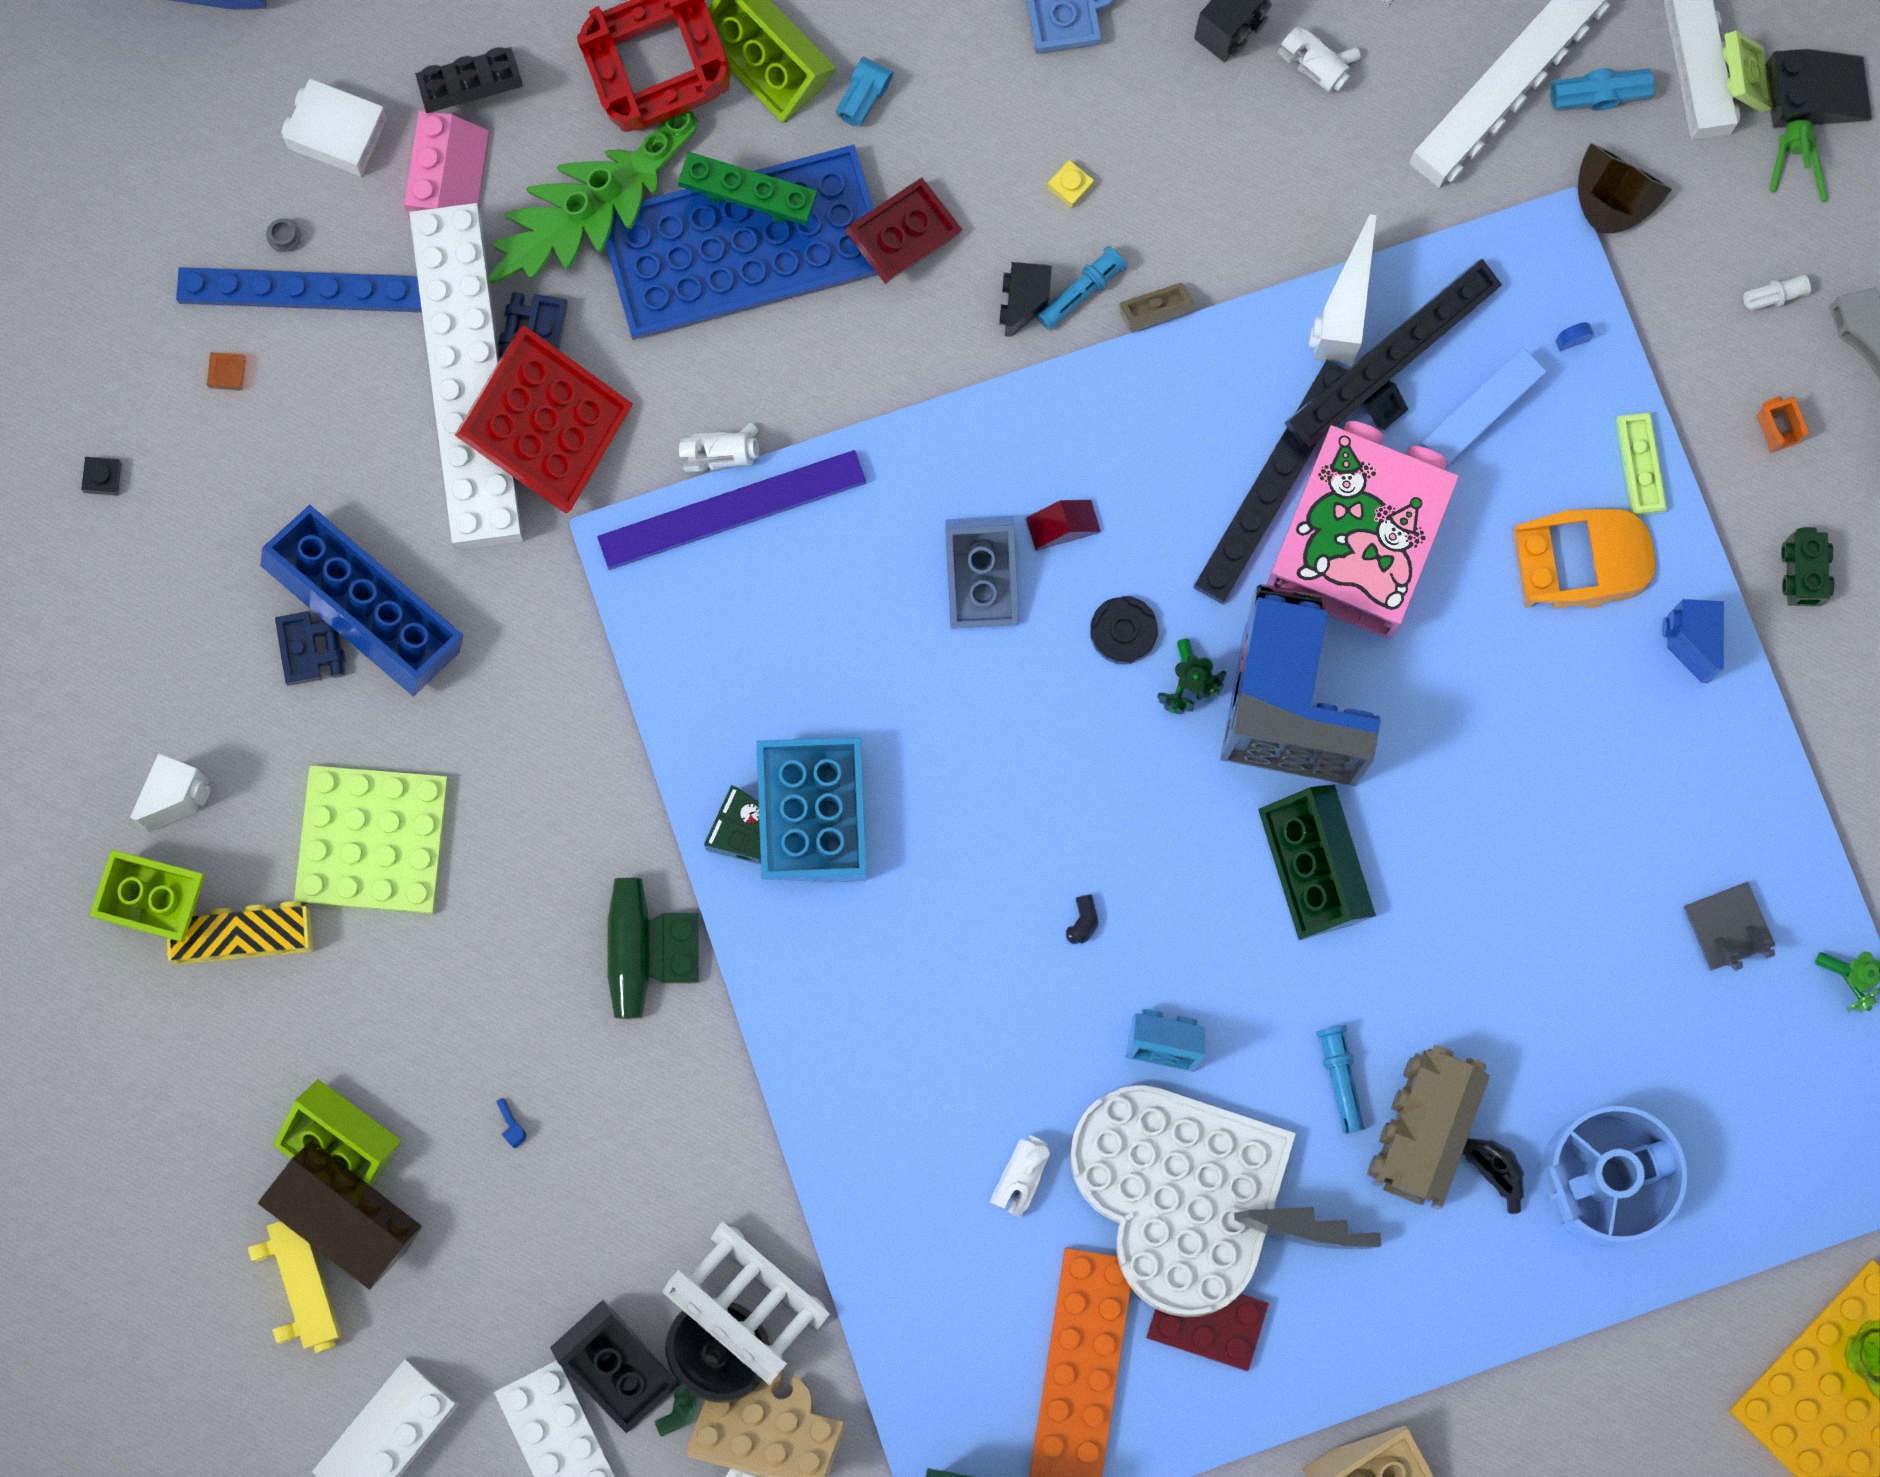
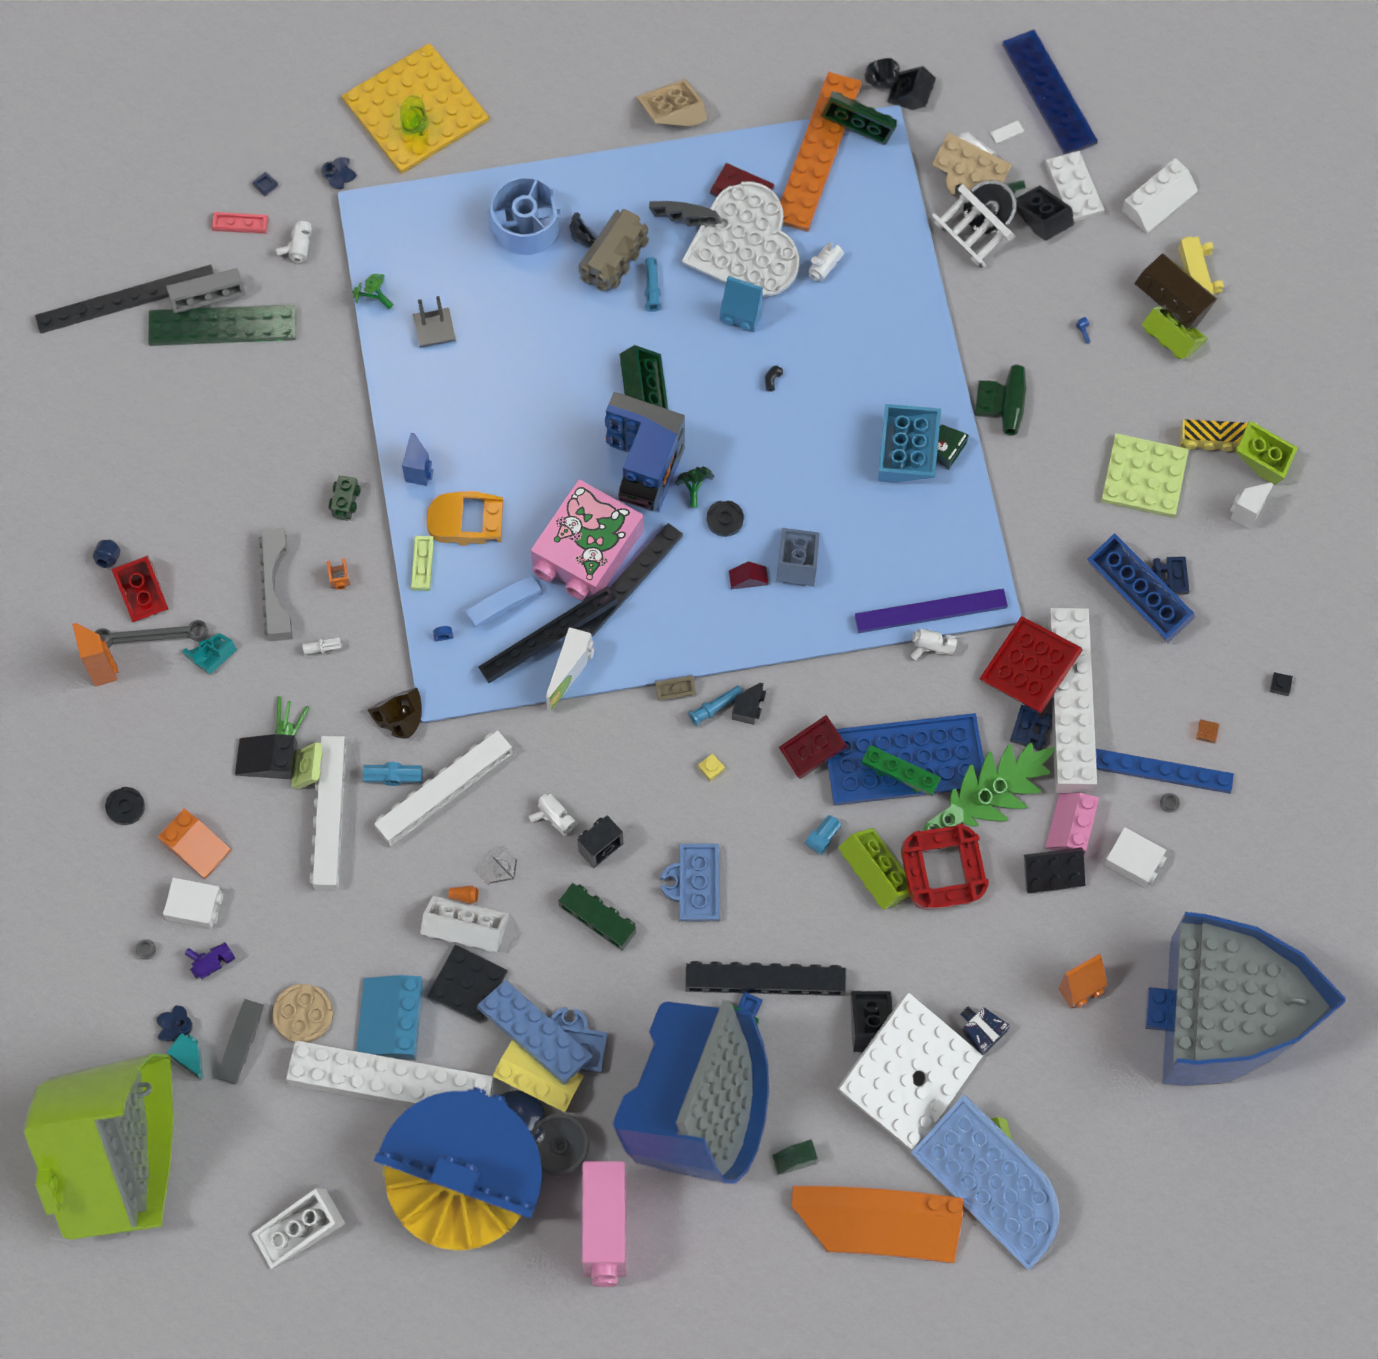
camera: 165 degrees left, 10 degrees down
(1386, 405) = (557, 609): black plate -> none

